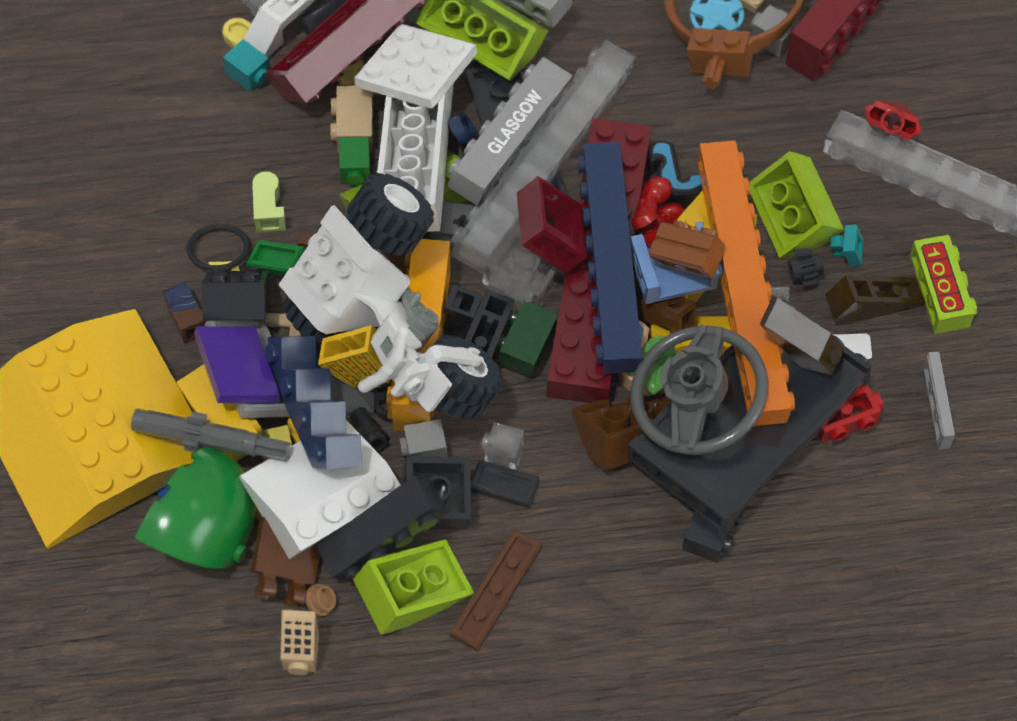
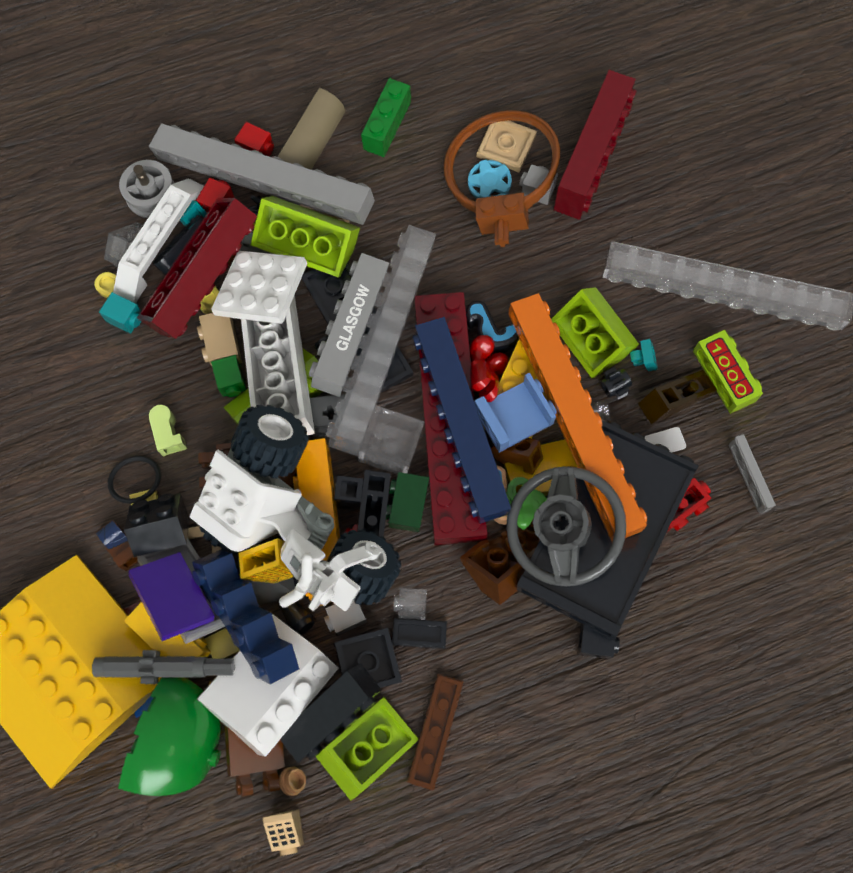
camera: 10 degrees left, 10 degrees up
(275, 256) = (184, 479): green tile -> none
(462, 128) = (311, 328): dark blue tile -> none
(559, 245) = (422, 420): dark red window -> none
(687, 249) = (525, 402): dark orange brick -> none
(801, 337) = (640, 460): slope -> none
(893, 118) = (657, 240): red rock -> none

